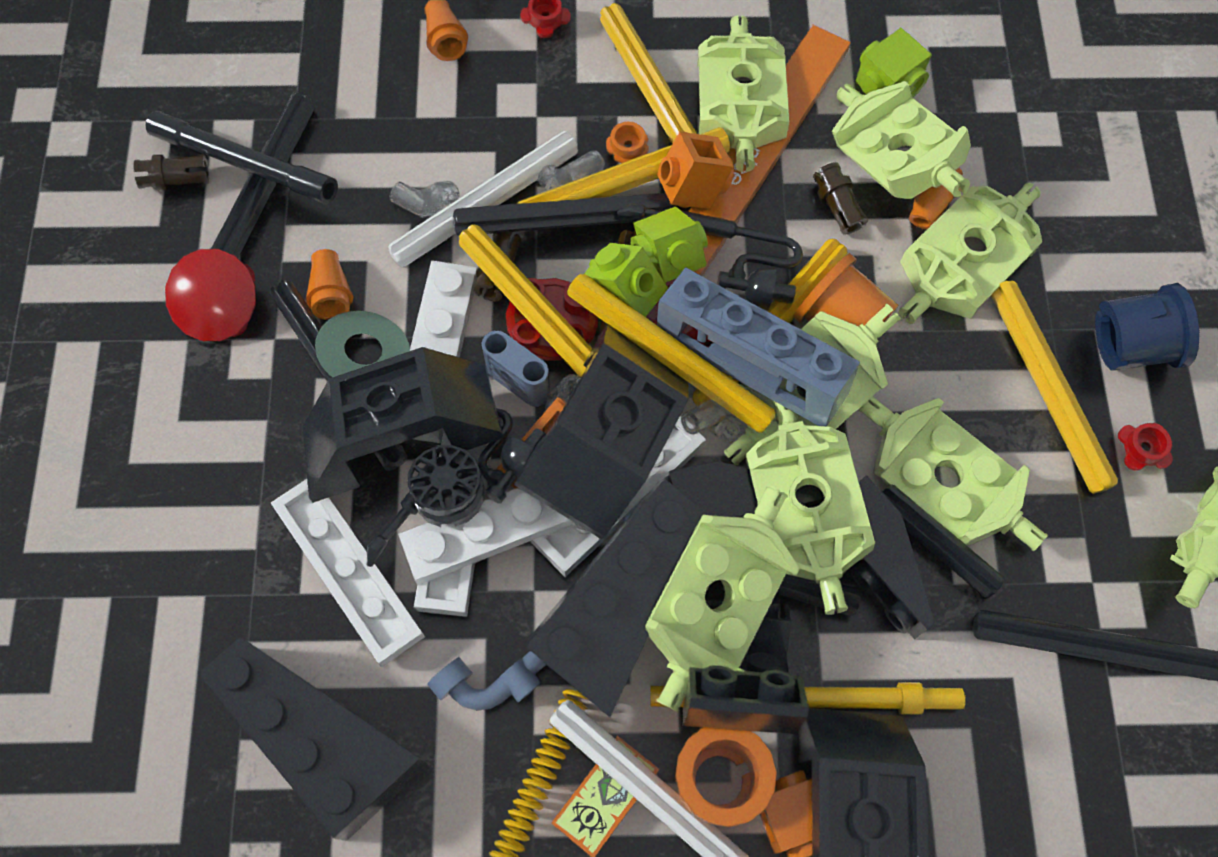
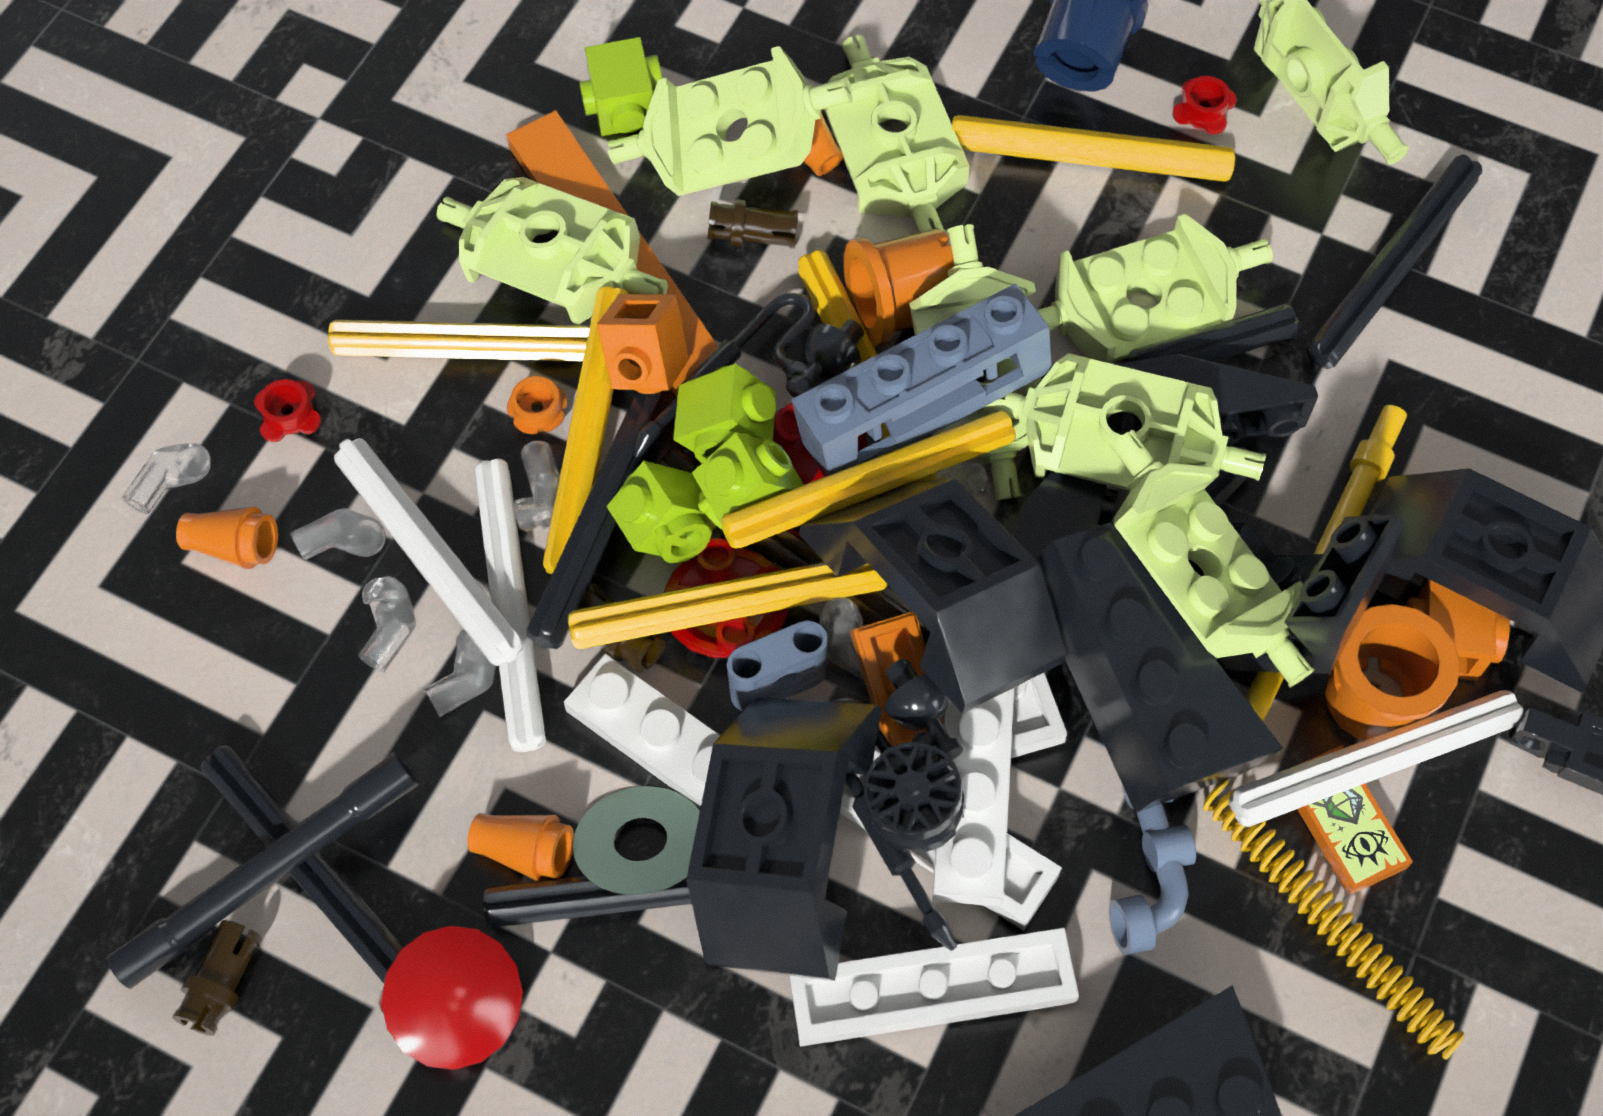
camera: 60 degrees left, 5 degrees down
(438, 142) = (393, 618): none -> clear arm
(483, 85) = (343, 531): none -> clear arm
(487, 135) = (429, 552): none -> white axle
(577, 241) = (662, 513): none -> lime brick

